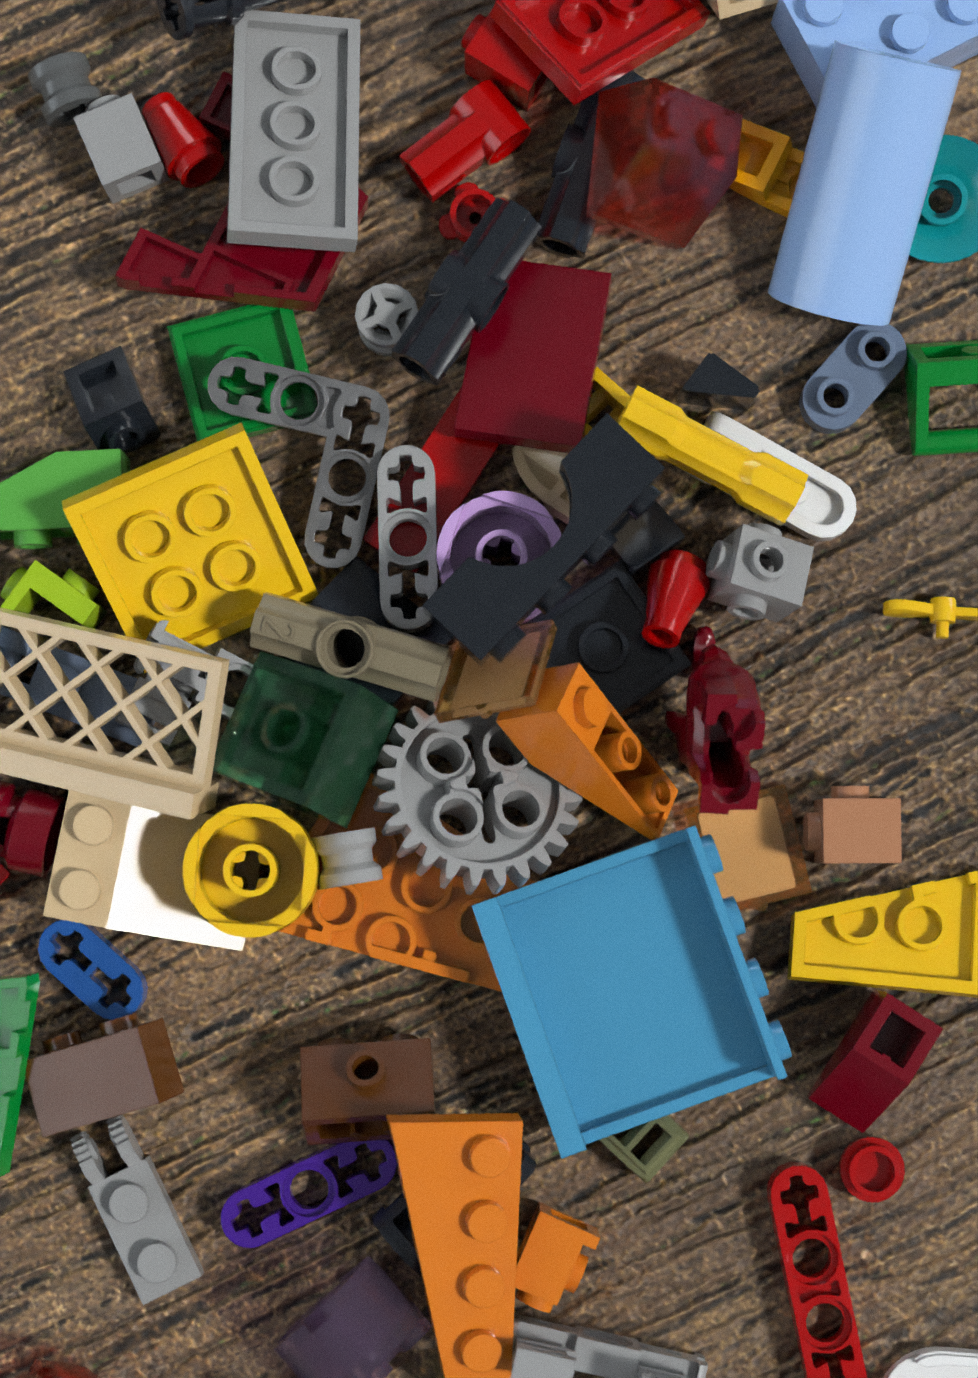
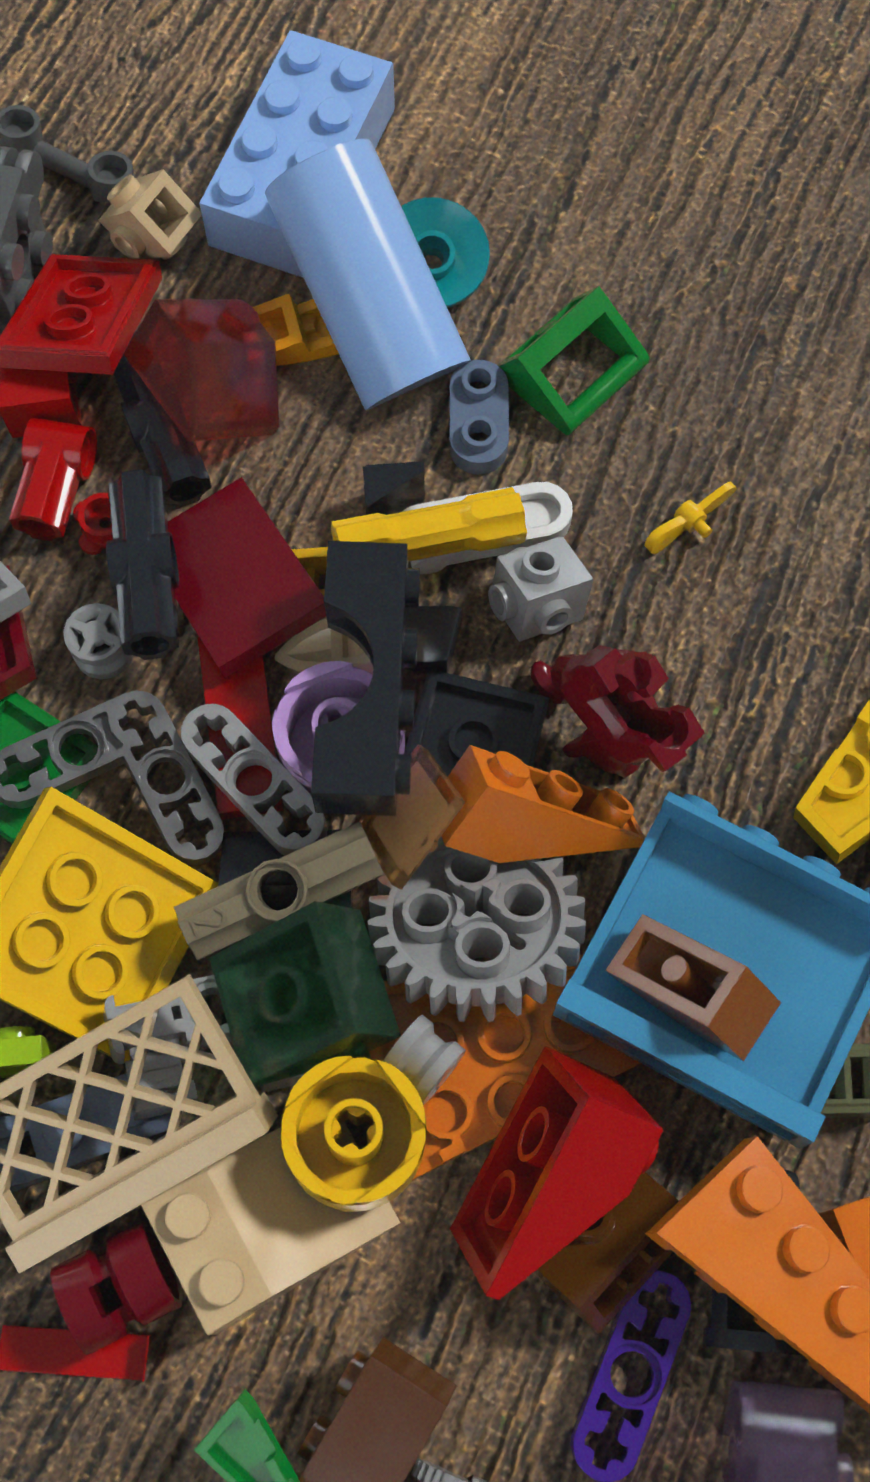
camera: 40 degrees left, 15 degrees down
(82, 980) = (285, 1371): blue beam -> none
(370, 1014) = (553, 1170): none -> red slope
(581, 979) = (695, 986): none -> dark orange slope
(673, 595) = (491, 655): red cone -> none
(756, 850) = (726, 780): clear orange piece -> none
(854, 827) = (779, 710): nougat brick -> none

